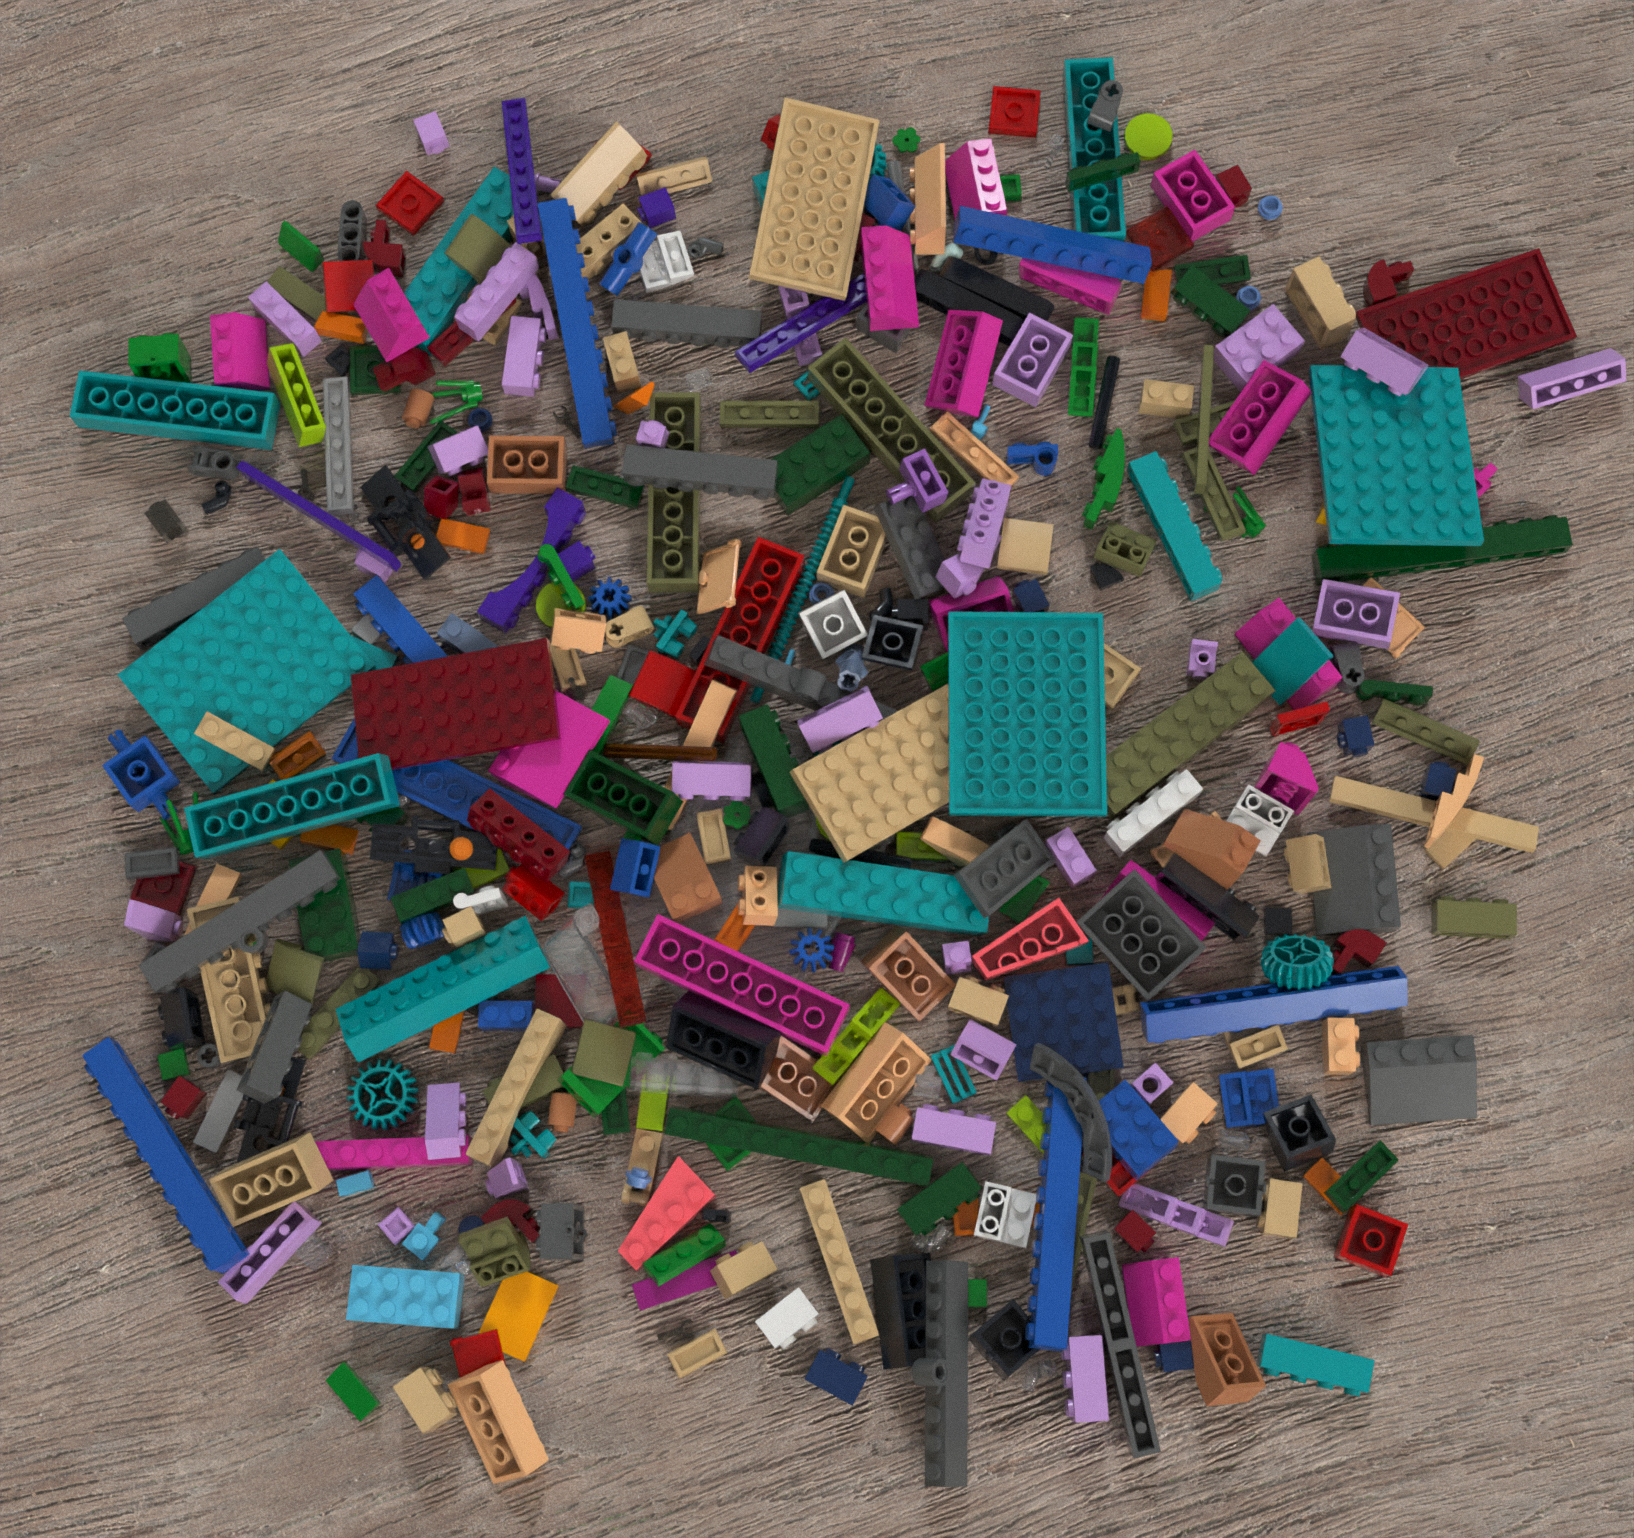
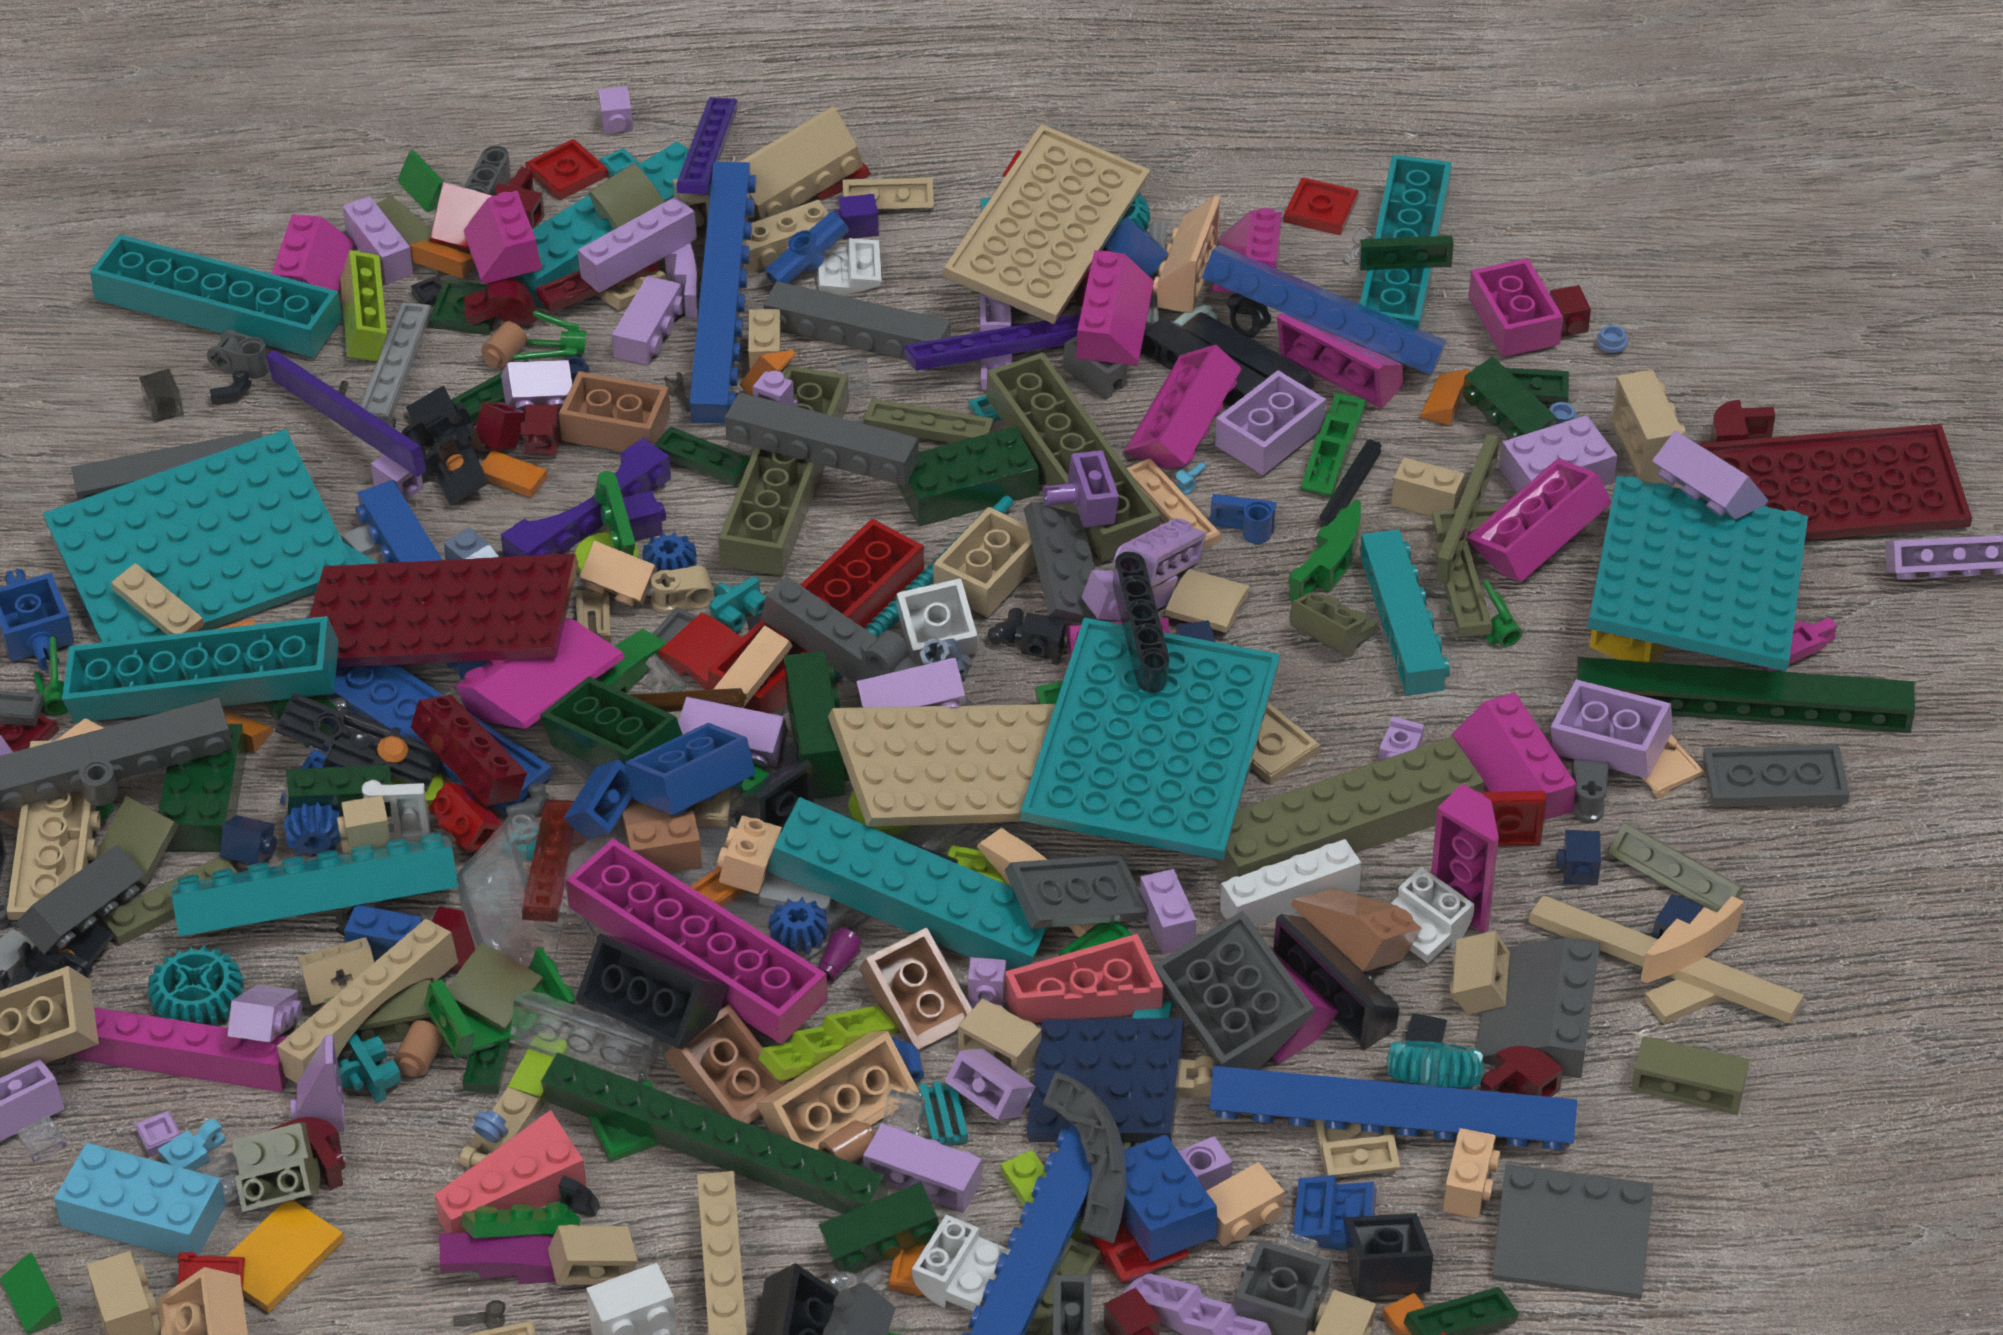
camera: 10 degrees right, 30 degrees down
(160, 357) = (217, 236): green brick -> none
(355, 1183) = (123, 1076): medium azure piece -> none
(447, 1033) = (306, 936): orange tile -> none
(451, 188) = (618, 161): none -> teal tile
(483, 1059) = (321, 966): none -> tan brick
(560, 1232) = (369, 1163): dark grey brick -> none
(696, 836) = (690, 769): none -> blue brick
(703, 246) = (903, 261): dark grey arm -> none
(718, 577) = (811, 553): light nougat door -> none
(893, 643) = (1008, 652): black slope -> none
(906, 135) = (1179, 207): green plant -> none
(914, 1030) = (911, 1058): none -> blue arm
(997, 602) = (1141, 622): none -> black beam
(1011, 187) = (1294, 266): green tile -> none
(1105, 575) = (1302, 648): black tile -> none
(1106, 108) = (1427, 195): dark grey piece -> none
(1148, 136) = (1478, 250): lime tile -> none
(1163, 236) = (1468, 343): clear red plate -> none
(1292, 660) = (1516, 749): teal tile -> none
(1394, 691) = (1663, 825): dark green plate -> none
(1479, 622) = (1775, 775): none -> dark grey plate

